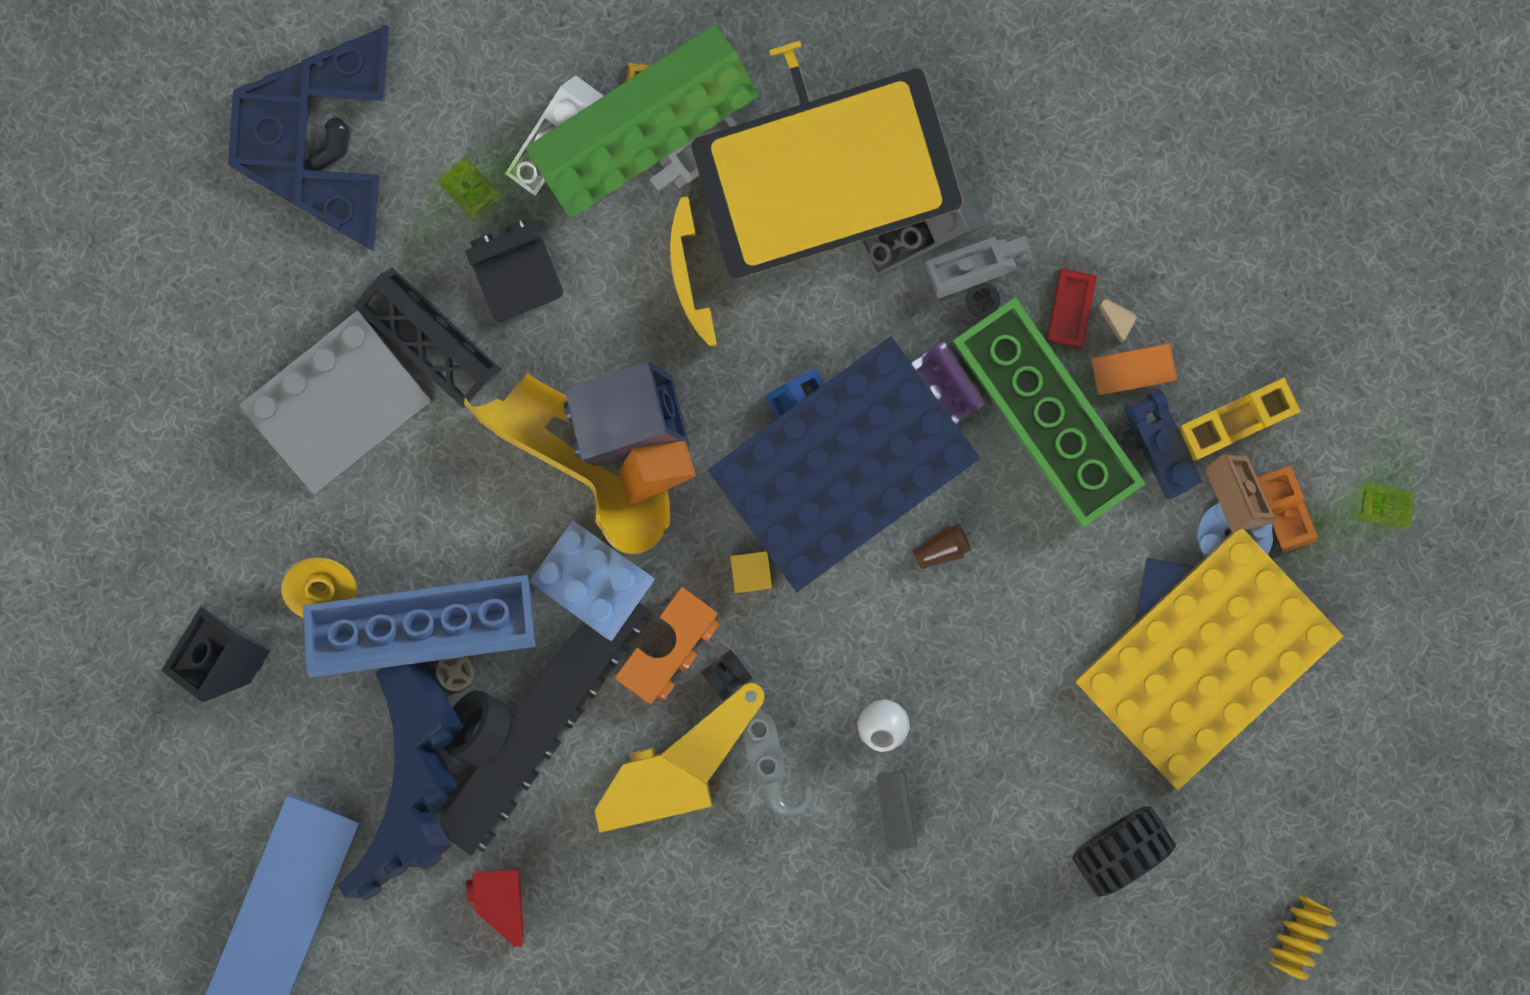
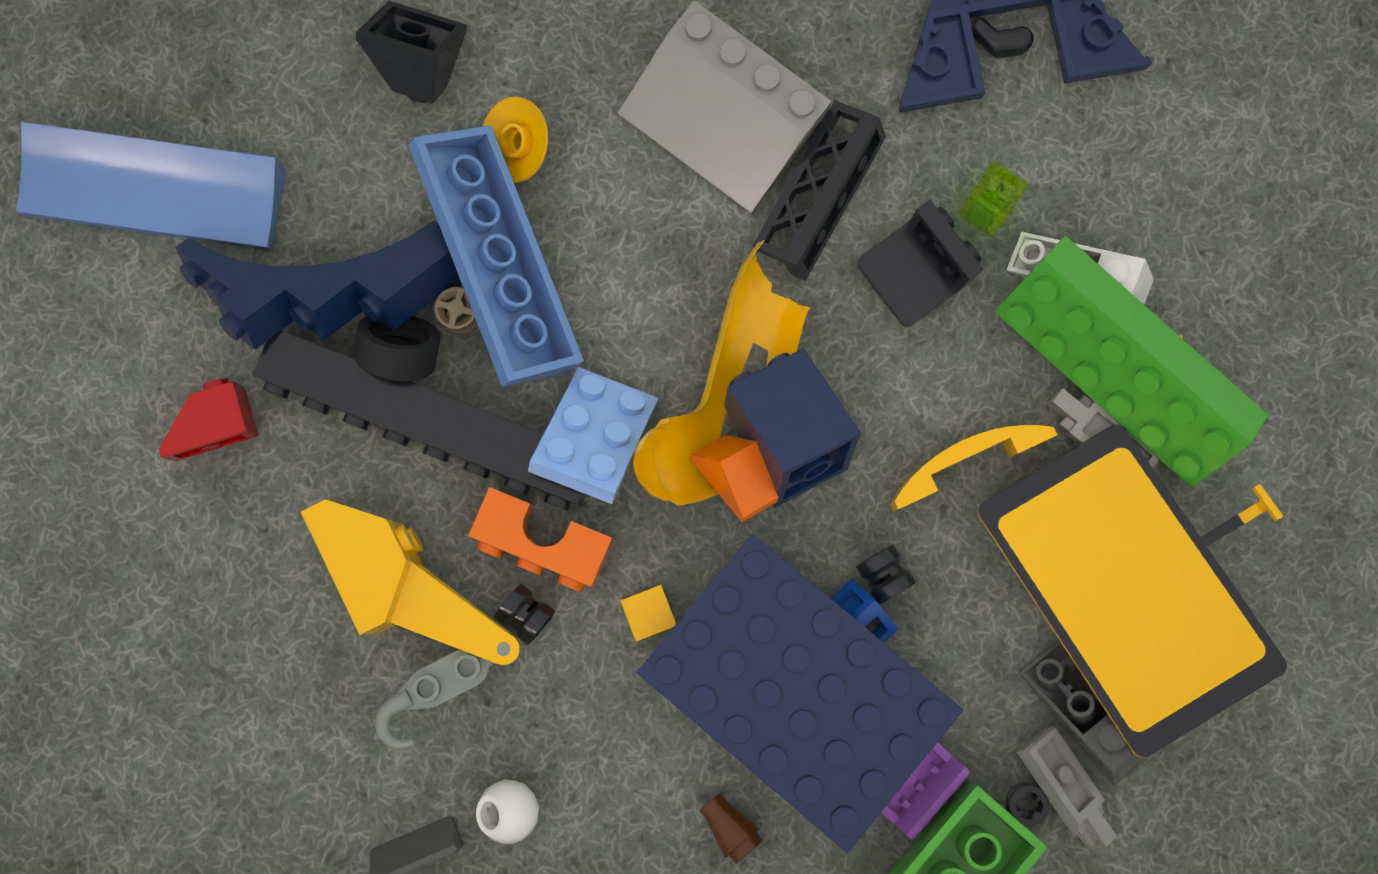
camera: 75 degrees right, 5 degrees down
(759, 370) = (881, 564): none -> black wheel

